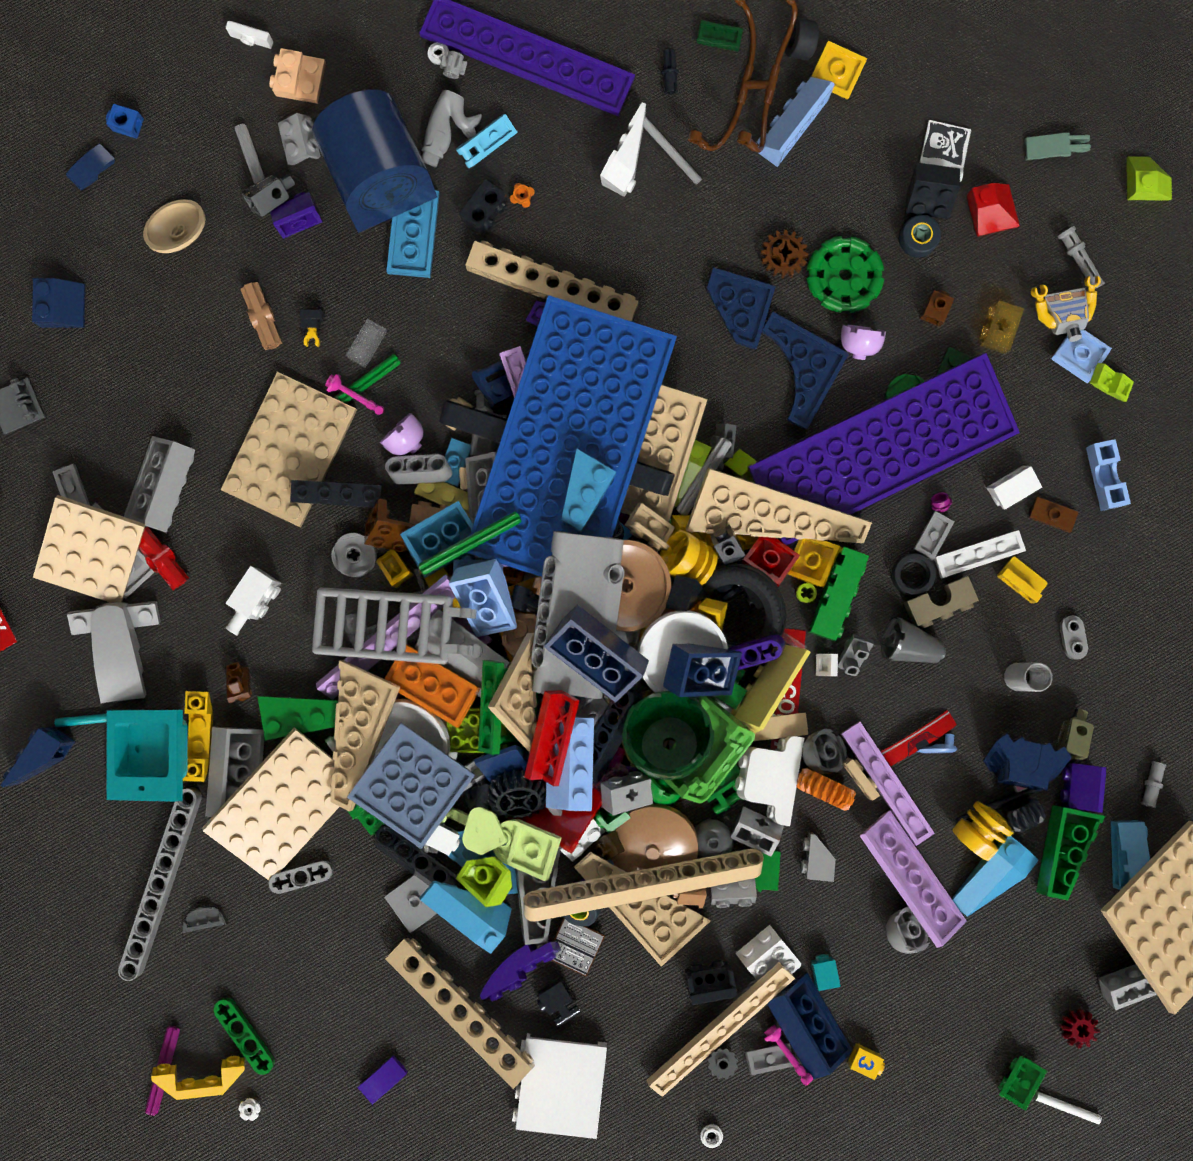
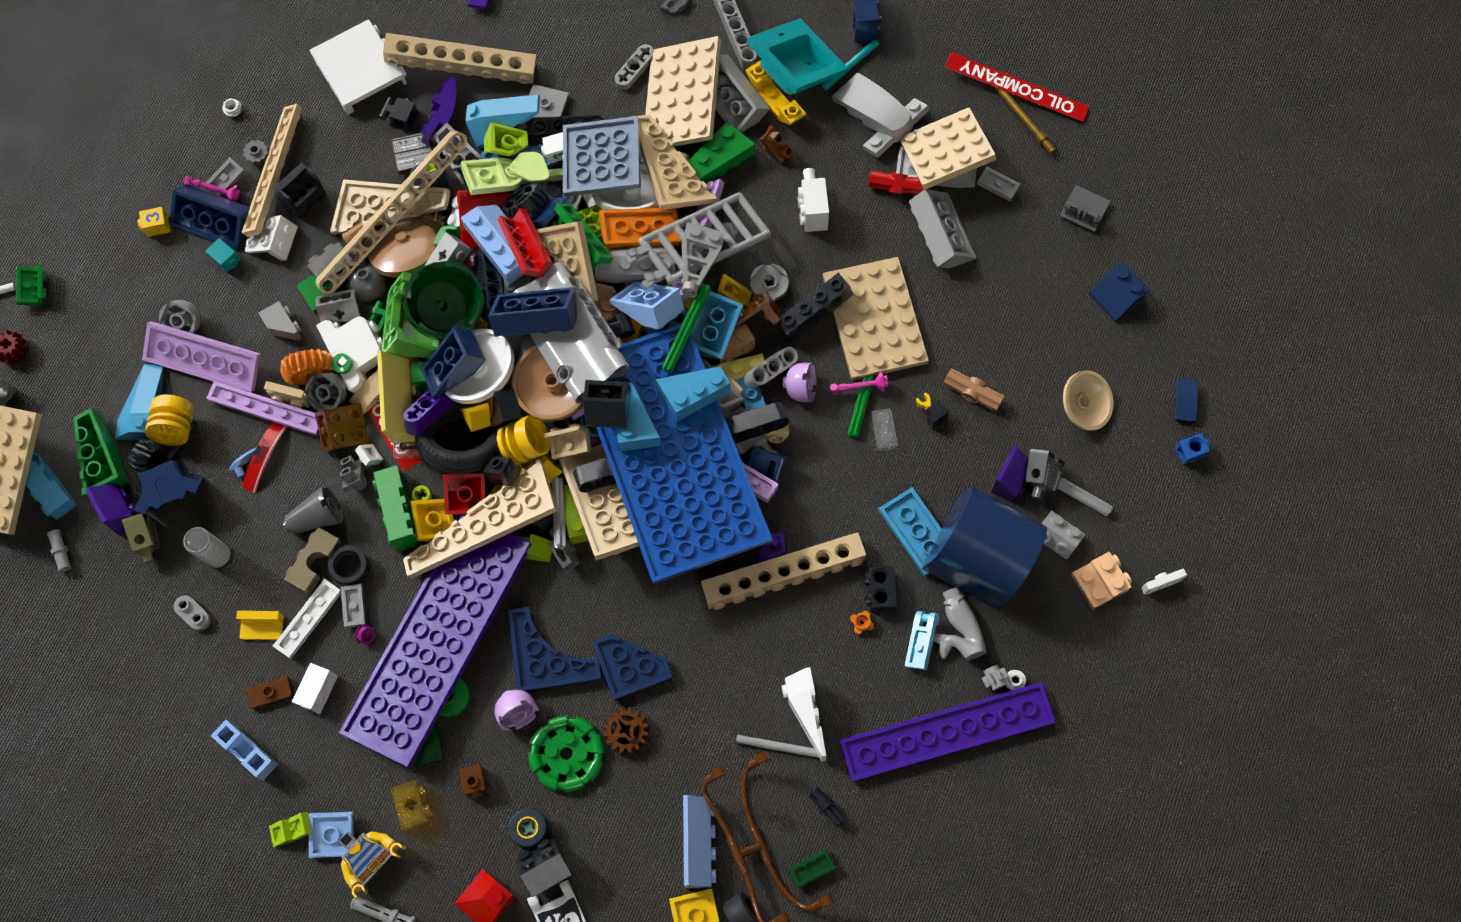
camera: 145 degrees right, 15 degrees down
(383, 618) = (704, 238): none -> light grey plate
(513, 474) = (693, 390): none -> dark azure wedge
(600, 507) = (606, 403): none -> black slope
(793, 765) = (342, 363): none -> green tile
(834, 707) = (341, 427): none -> reddish brown bracket

